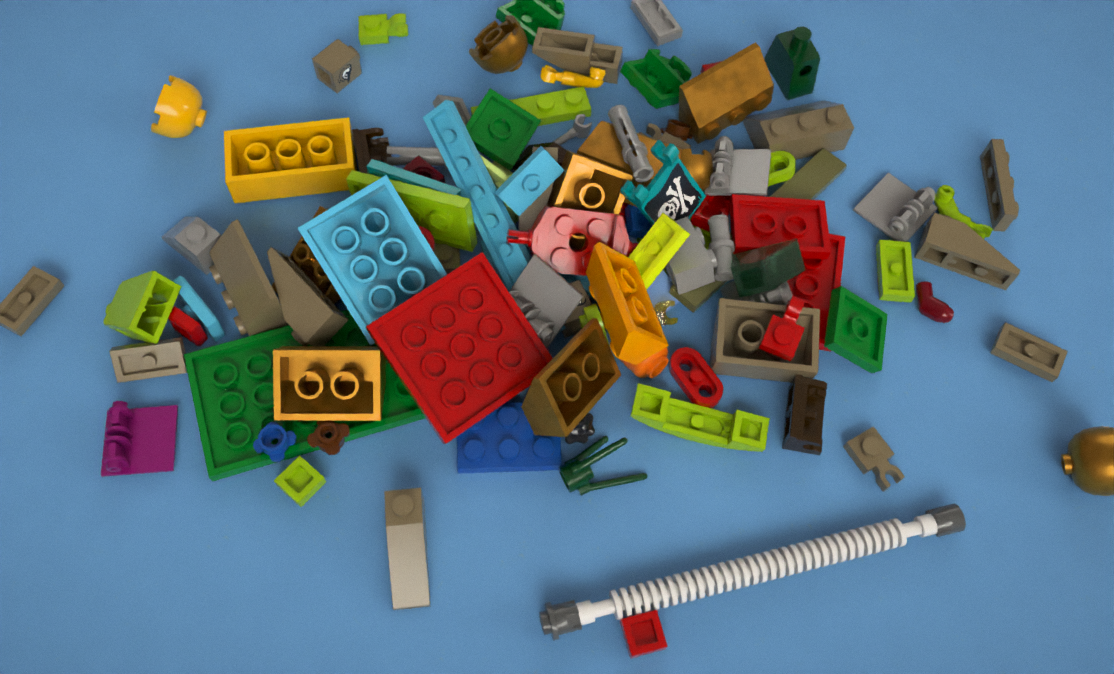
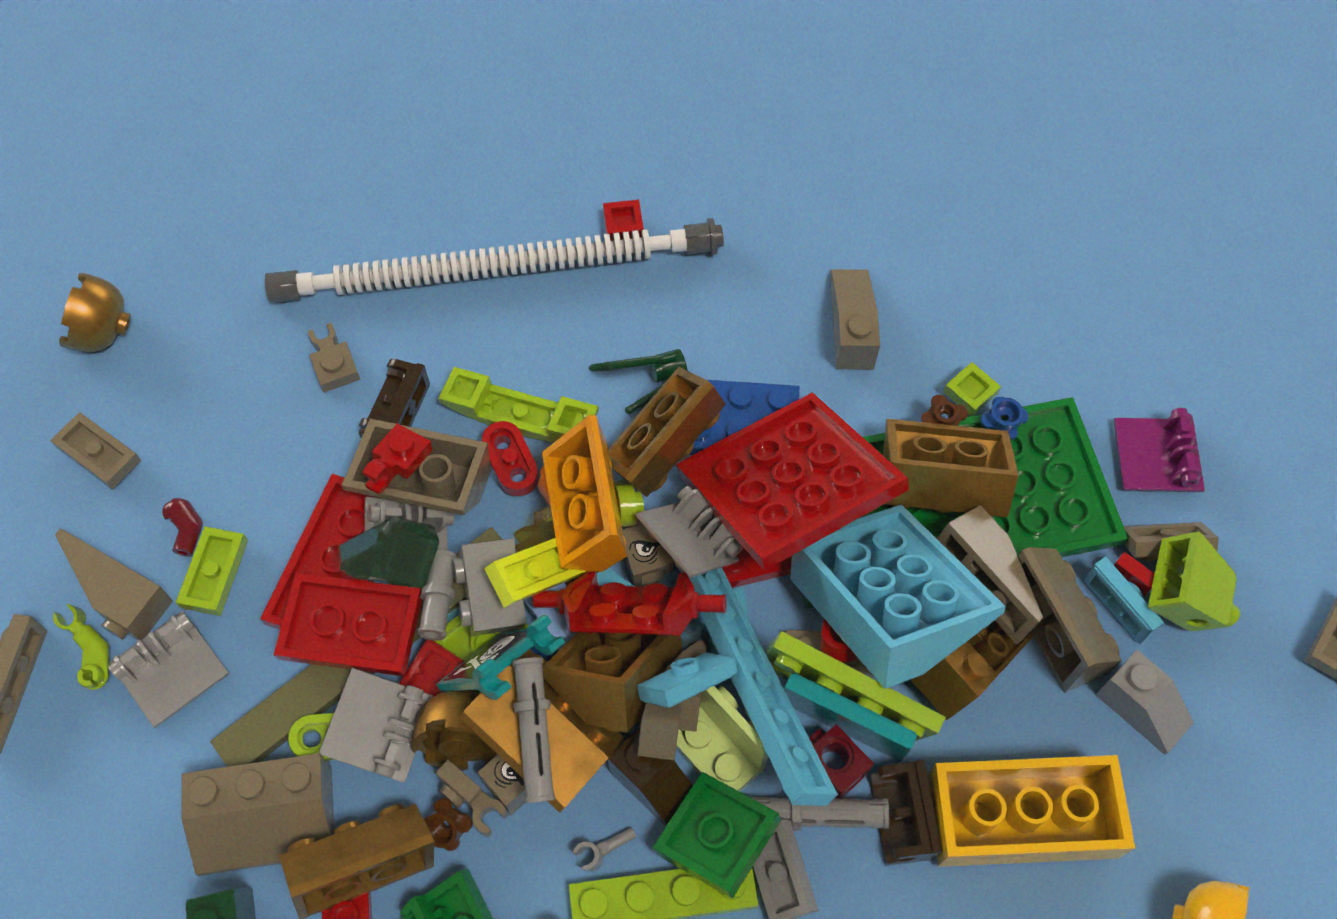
camera: 170 degrees left, 0 degrees up
(856, 330) = (298, 486): green plate -> none

